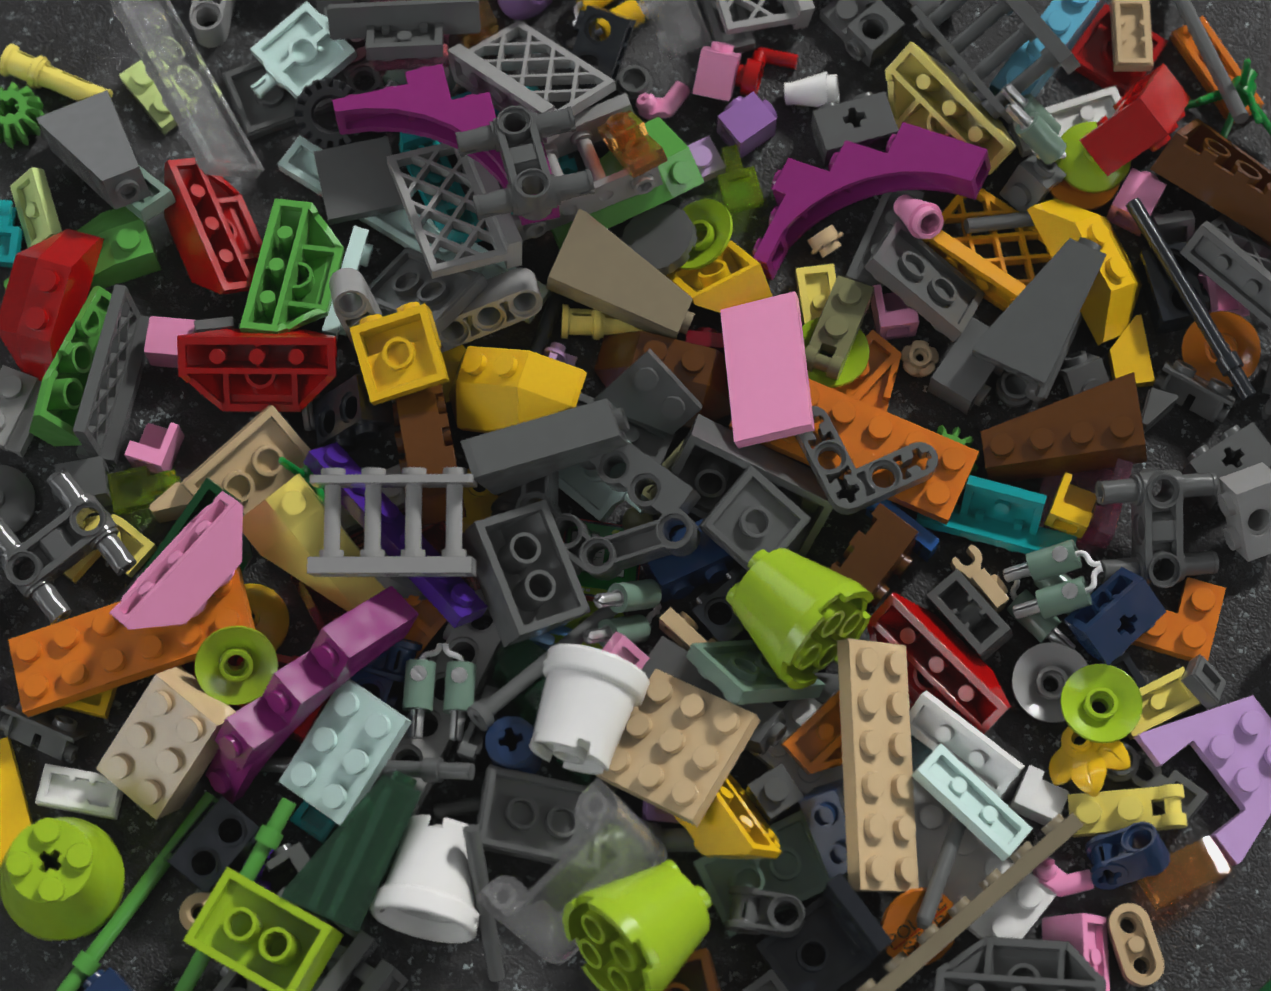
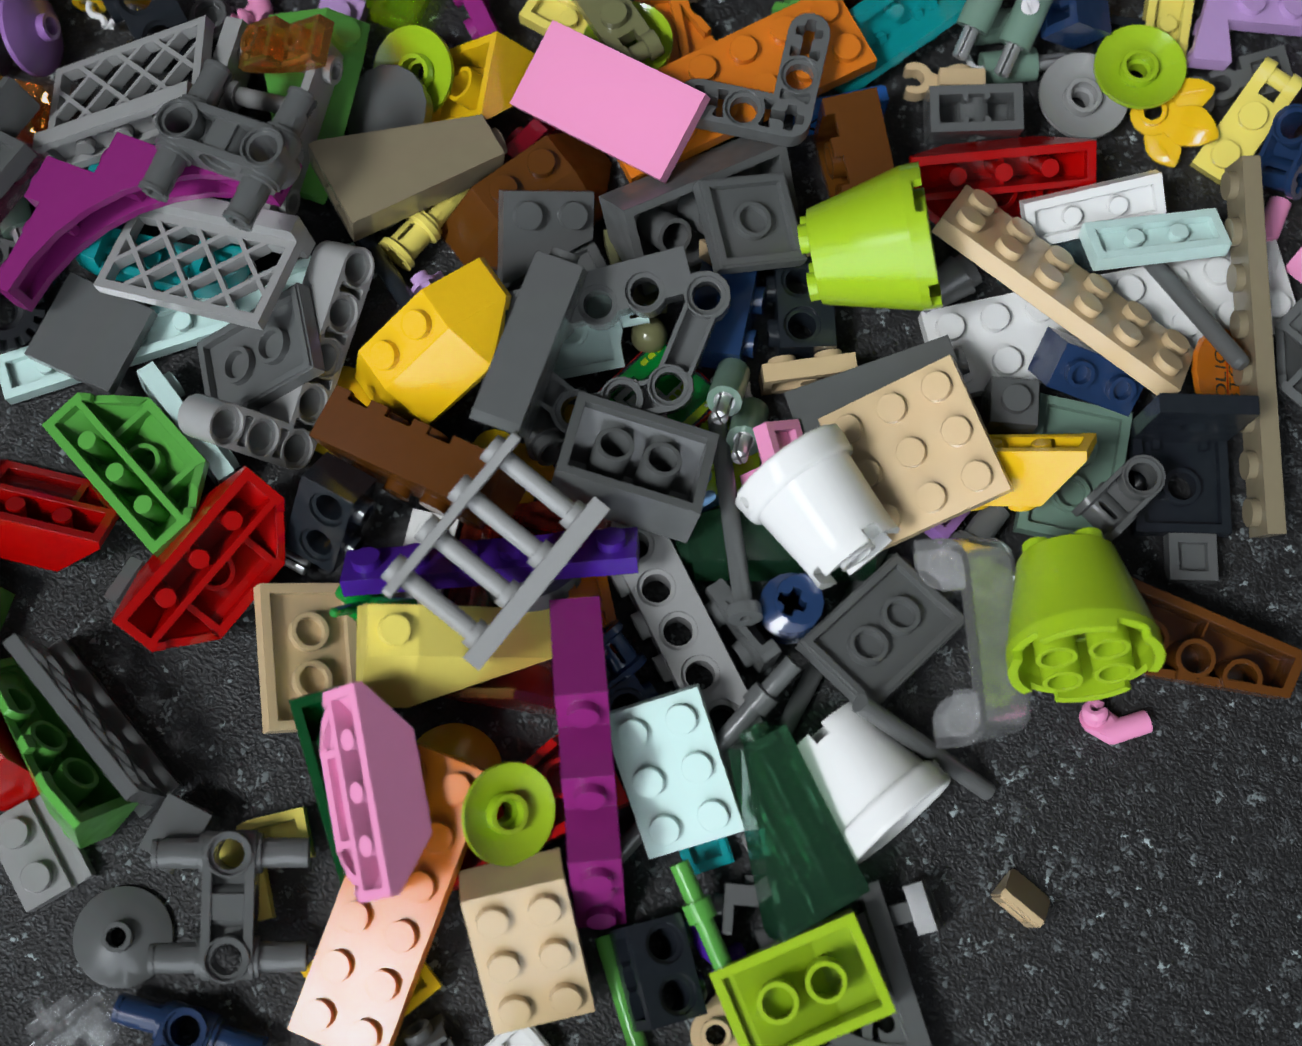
camera: 55 degrees left, 5 degrees up
(136, 488) = (228, 784): clear neon green plate -> none
(156, 448) = (201, 734): bright pink panel -> none
(162, 339) = (99, 640): bright pink panel -> none
(171, 503) = (276, 756): tan slope -> none
(399, 352) = (316, 415): yellow plate -> none
(419, 690) = (698, 619): sand green piece -> none
(744, 673) = (887, 340): sand green plate -> none
(818, 740) = (992, 319): orange wing -> none
(1038, 798) = (1184, 188): white panel -> none

